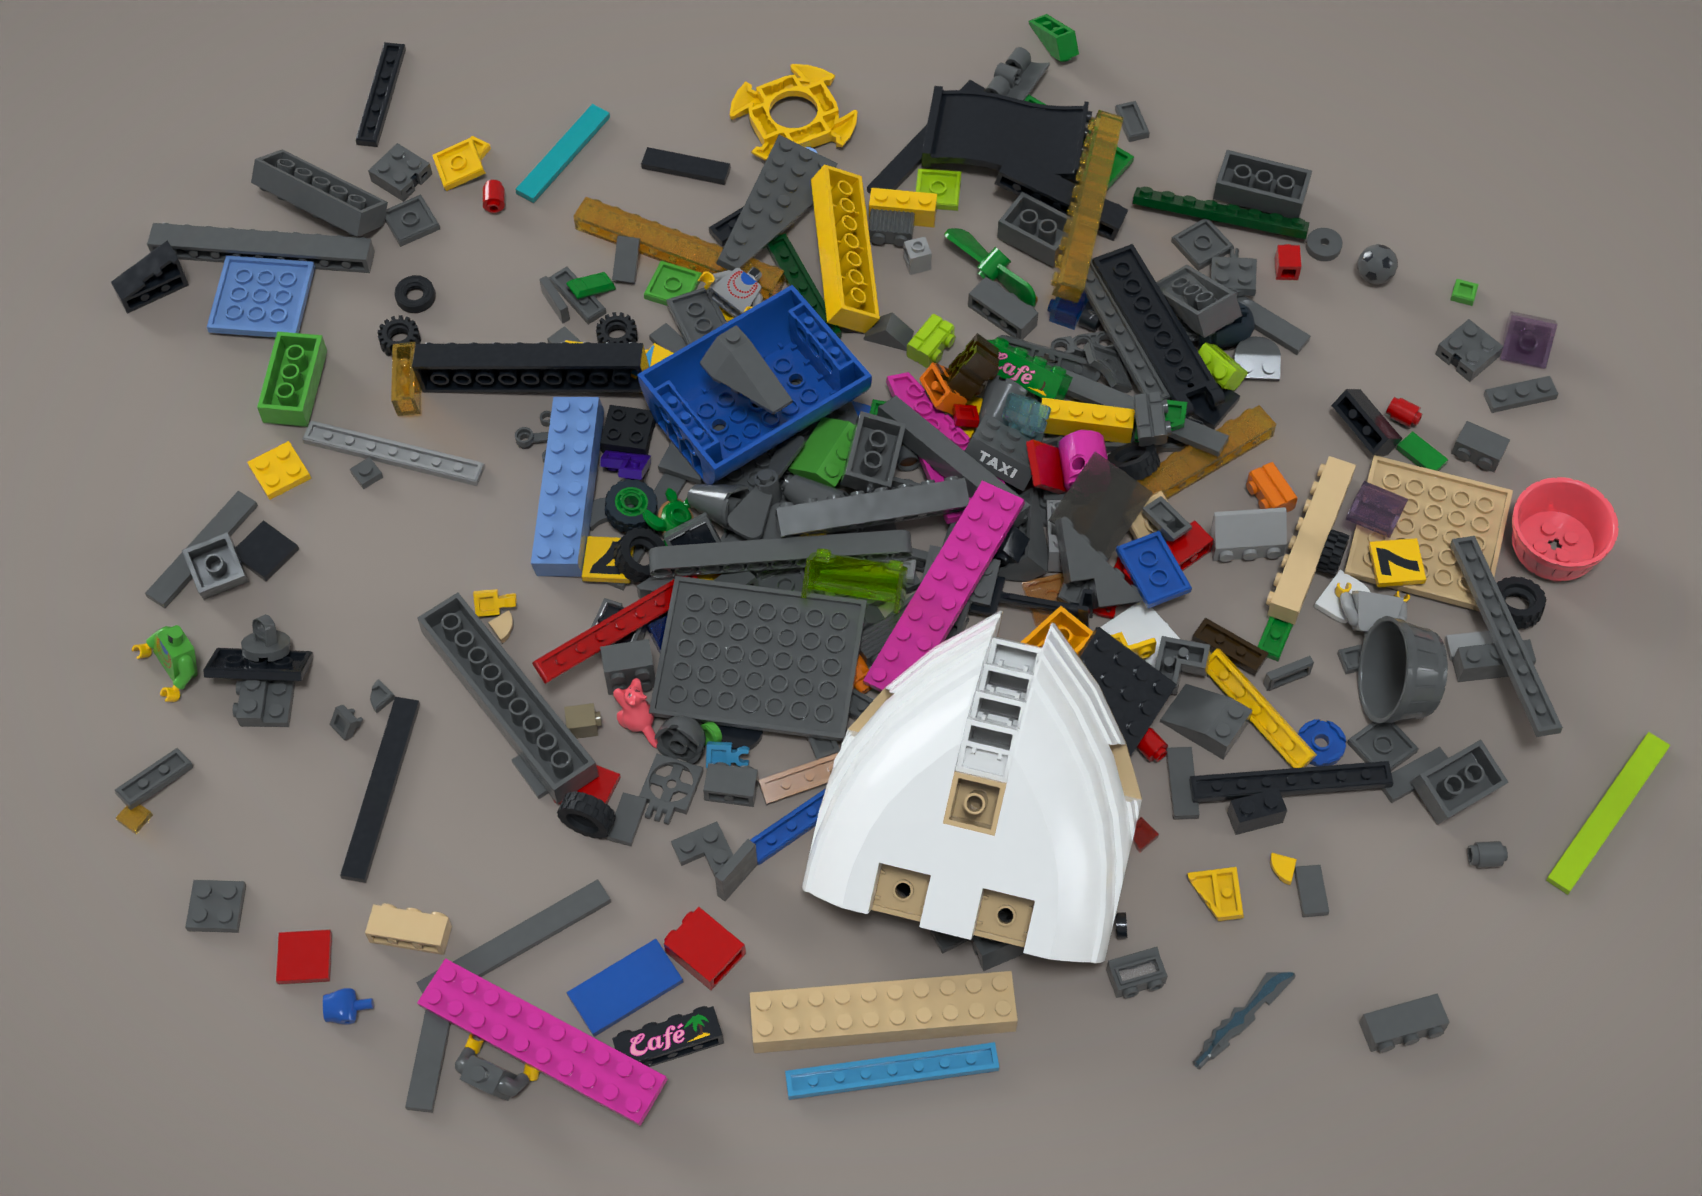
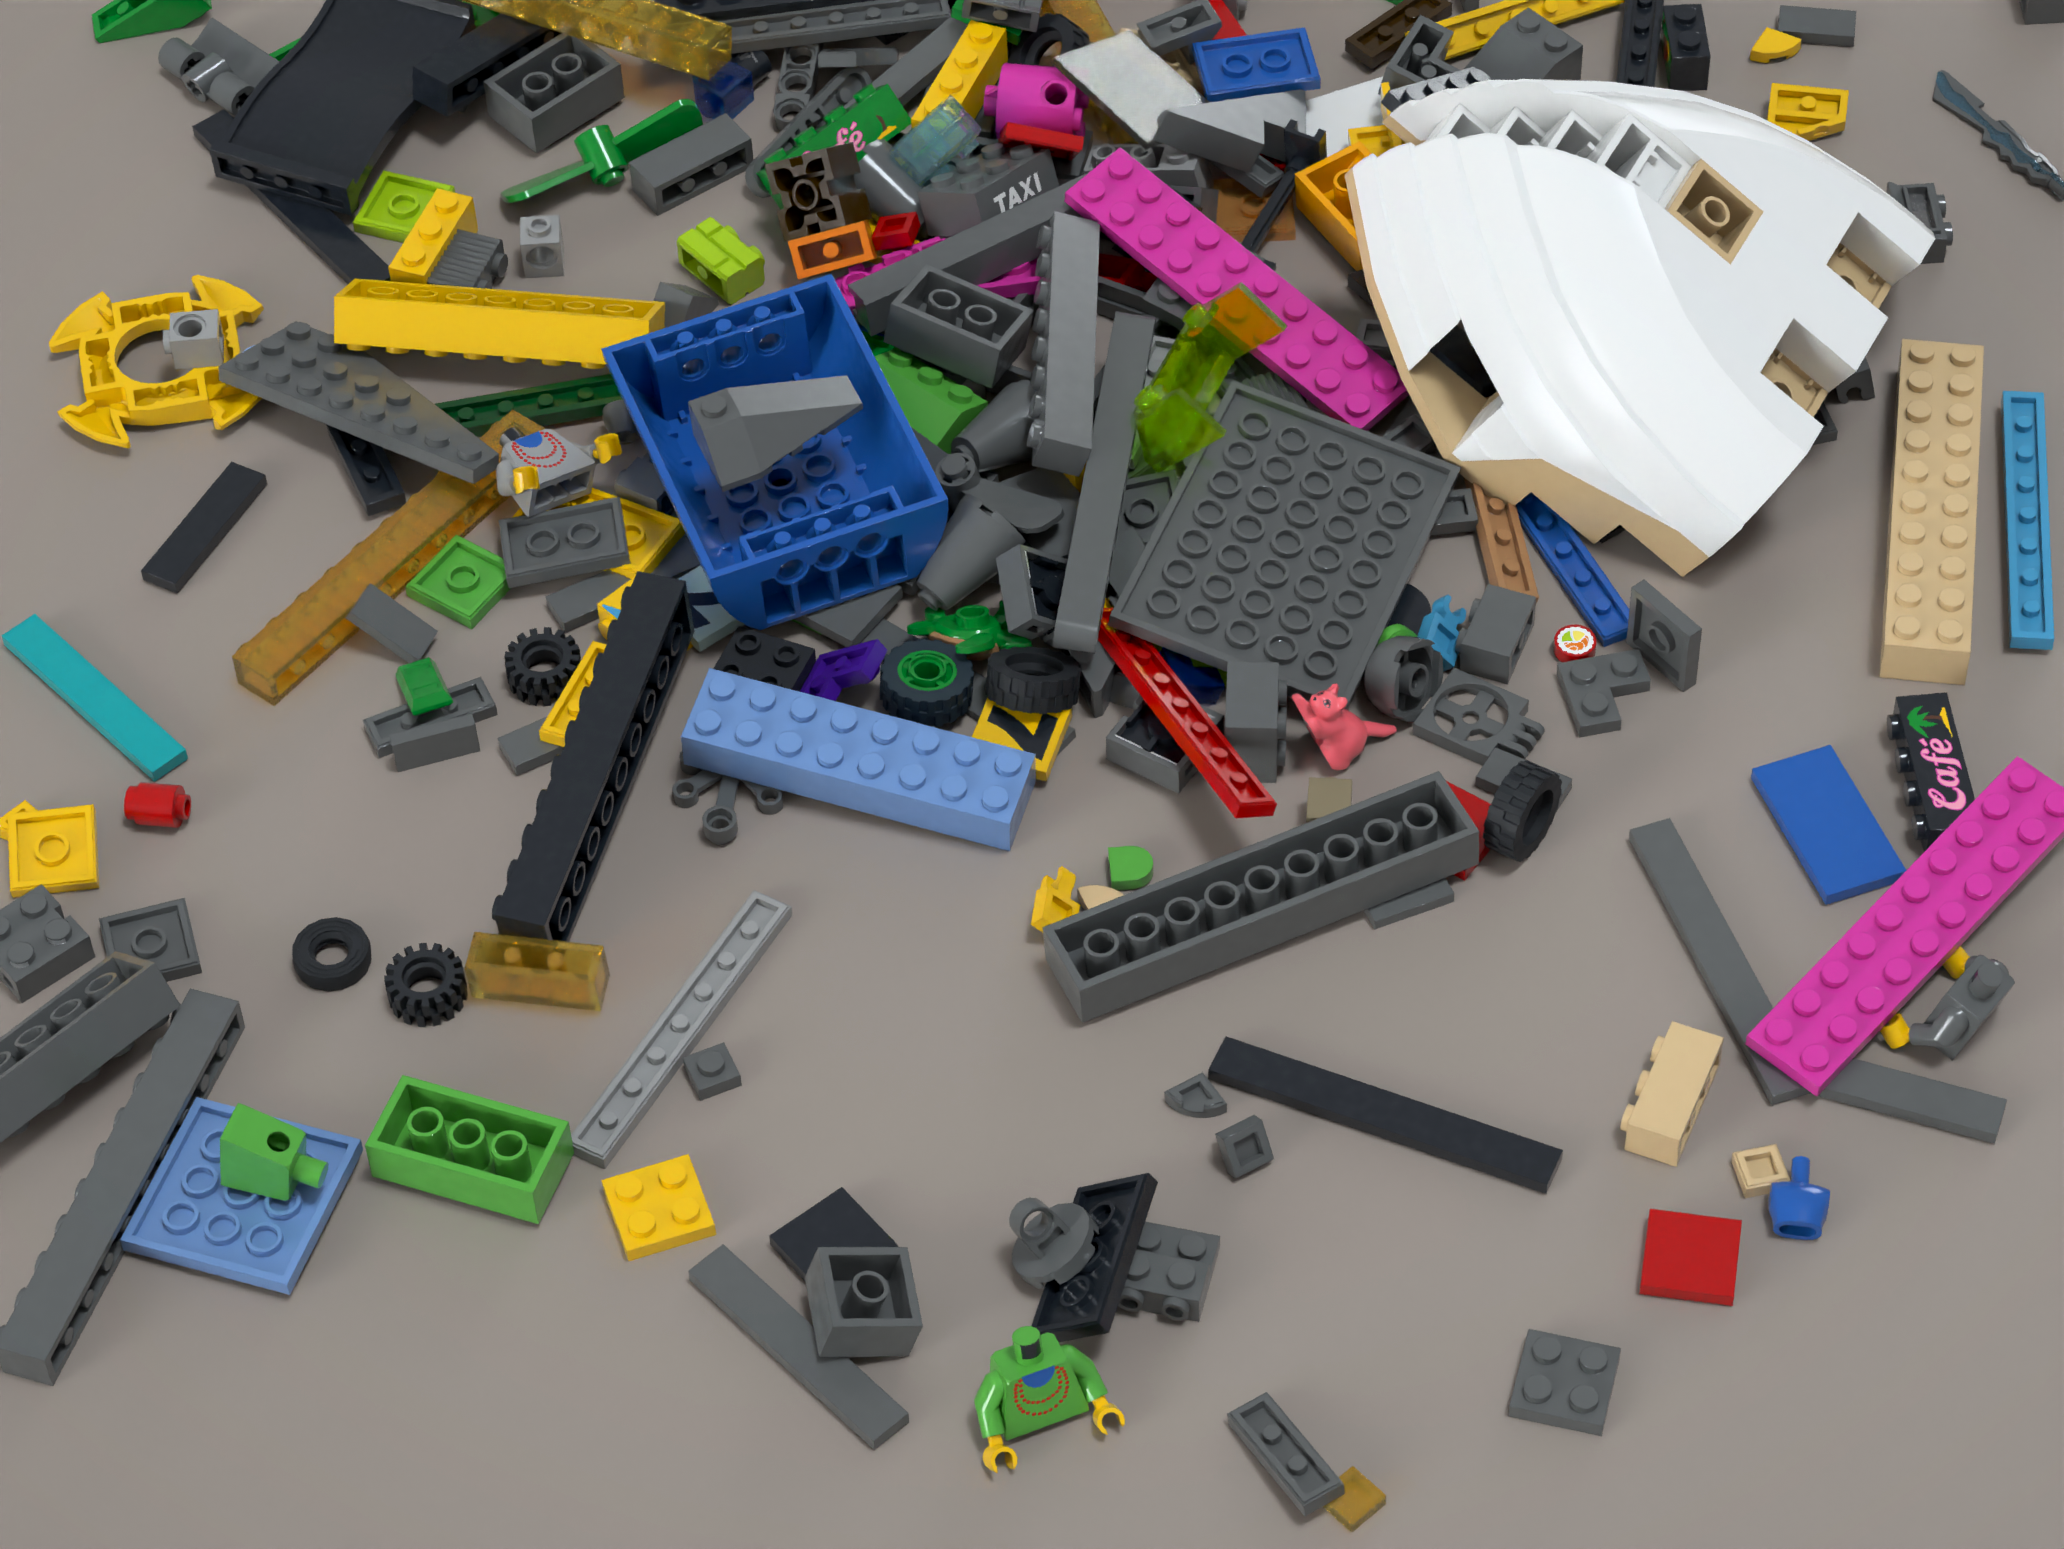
camera: 75 degrees left, 10 degrees down
(150, 279) = (128, 1367): black wedge -> none
(264, 292) = (266, 1155): none -> bright green torso
(368, 984) = (1758, 1169): none -> tan tile
(530, 633) = (1129, 867): none -> bright green tile
(704, 948) = (1783, 706): red brick -> none
(737, 829) = (1574, 643): none -> tile
(795, 119) = (195, 339): none -> light grey brick

